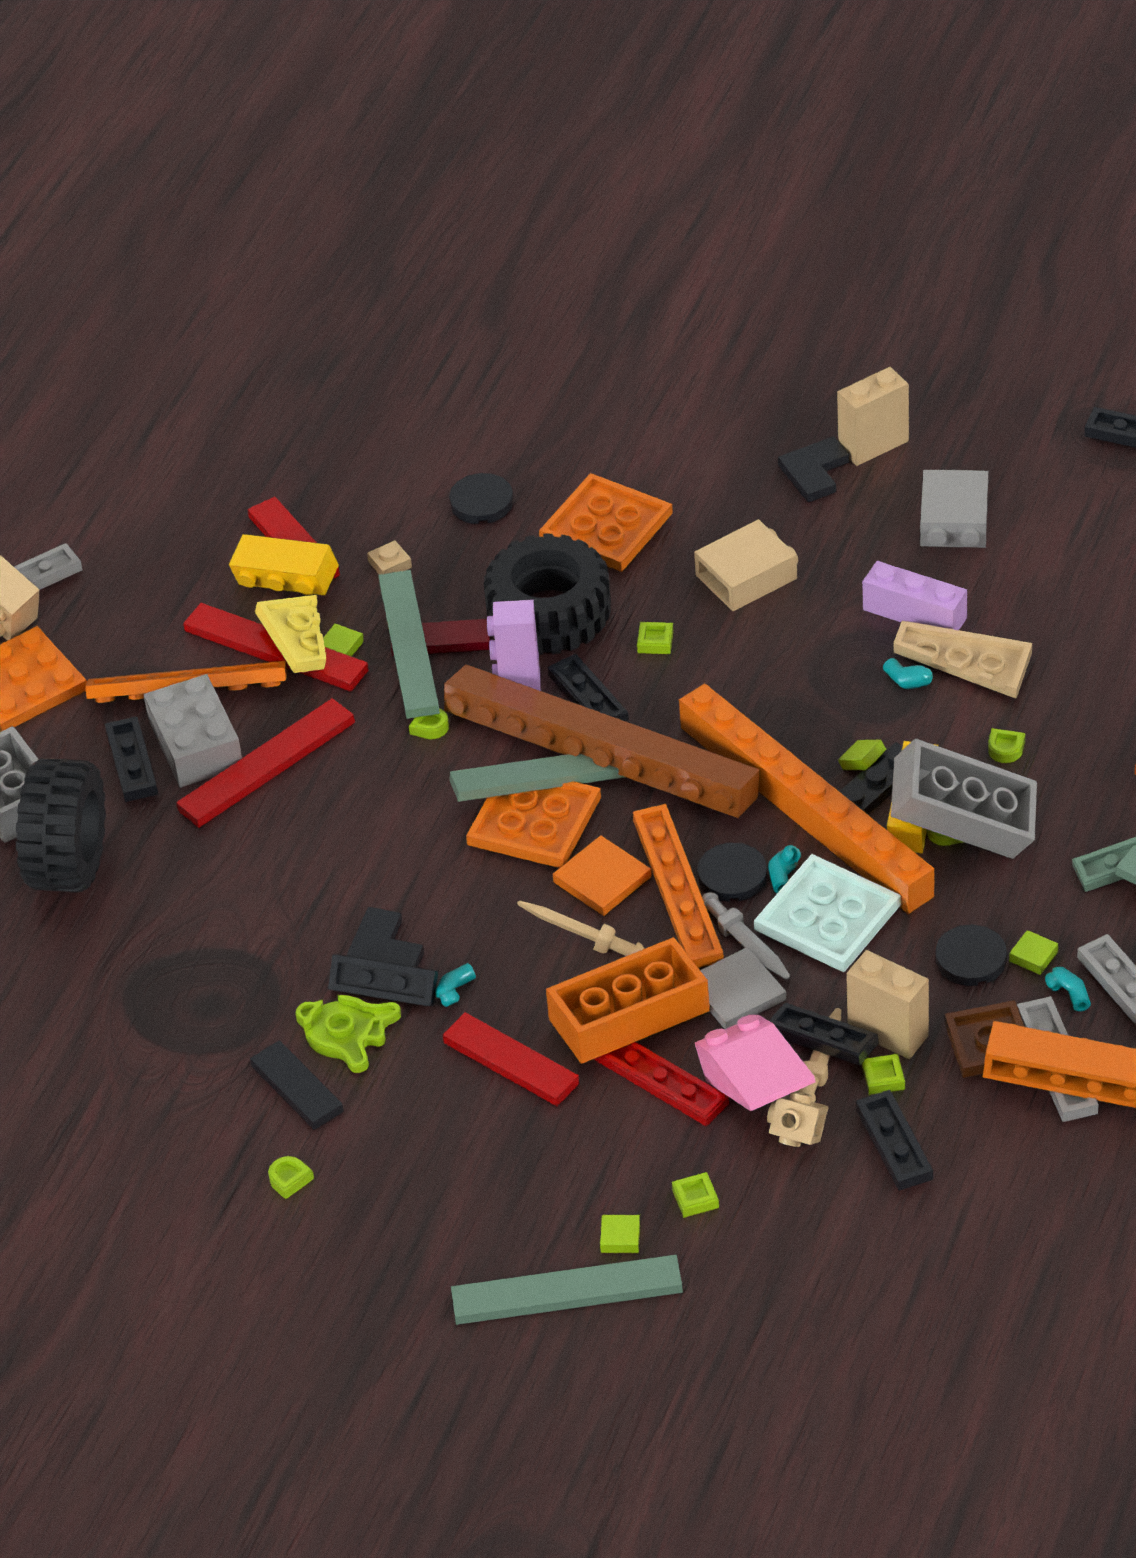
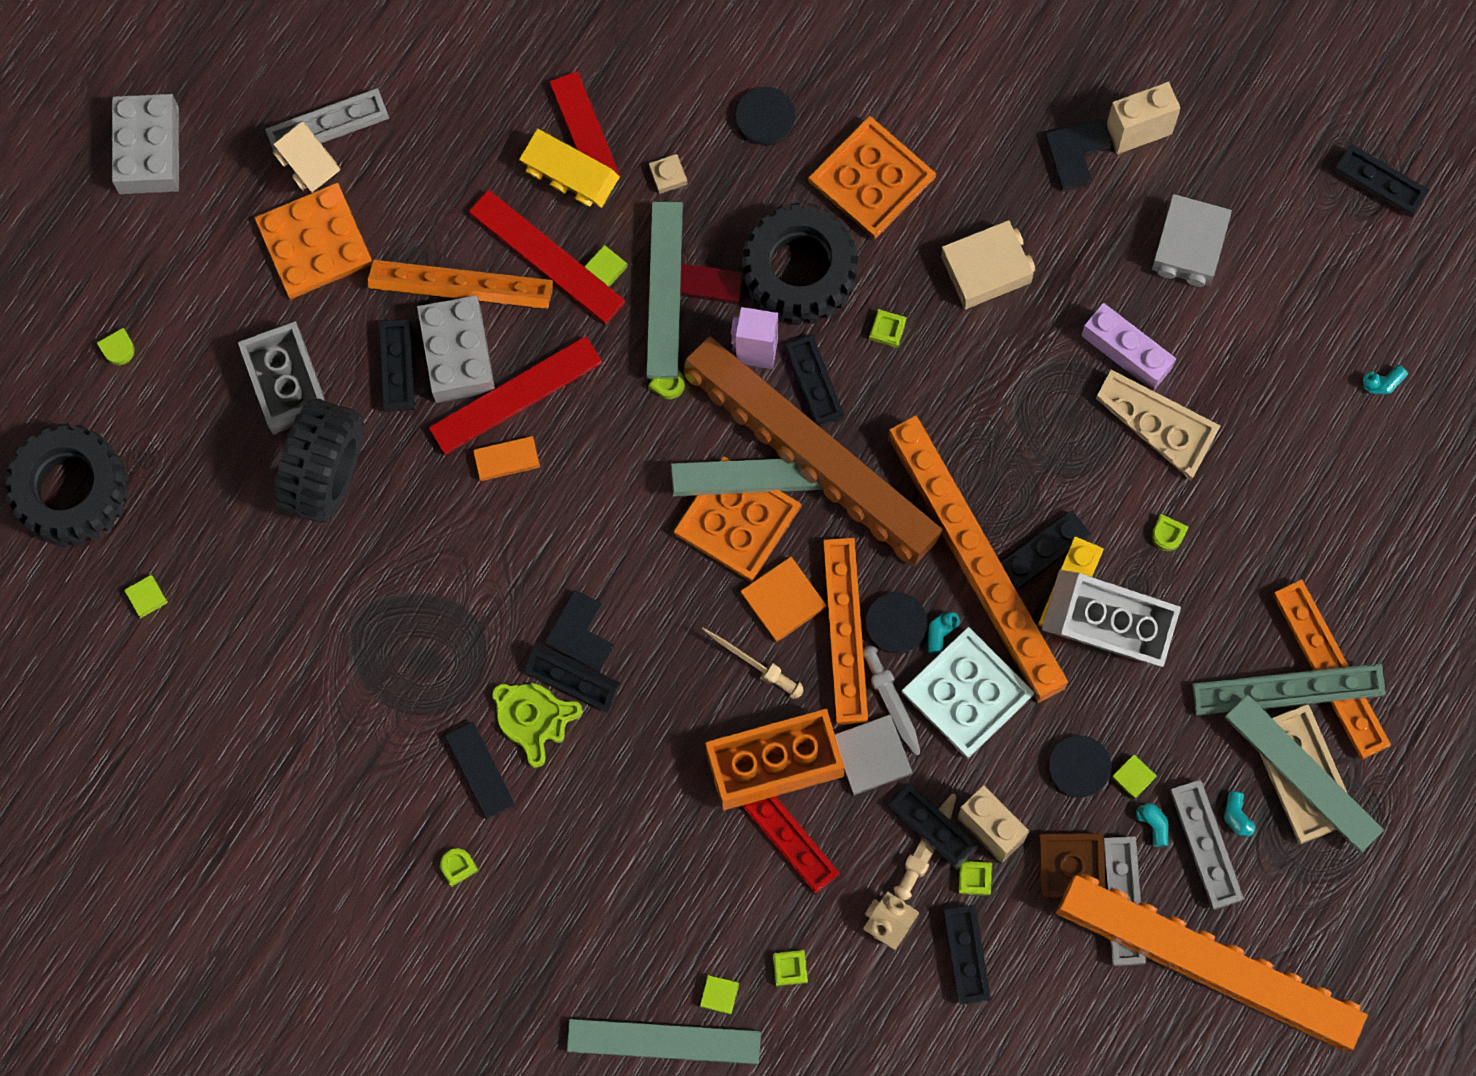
camera: 10 degrees right, 30 degrees up
(267, 815) = (506, 458): none -> orange tile
(295, 631) = (565, 252): light yellow wing -> none
(452, 980) = (628, 692): teal arm -> none
(511, 1059) = (665, 786): red tile -> none
(752, 1062) = (865, 862): bright pink slope -> none
(862, 754) = (1039, 518): lime tile -> none
(907, 677) = (1102, 433): teal arm -> none

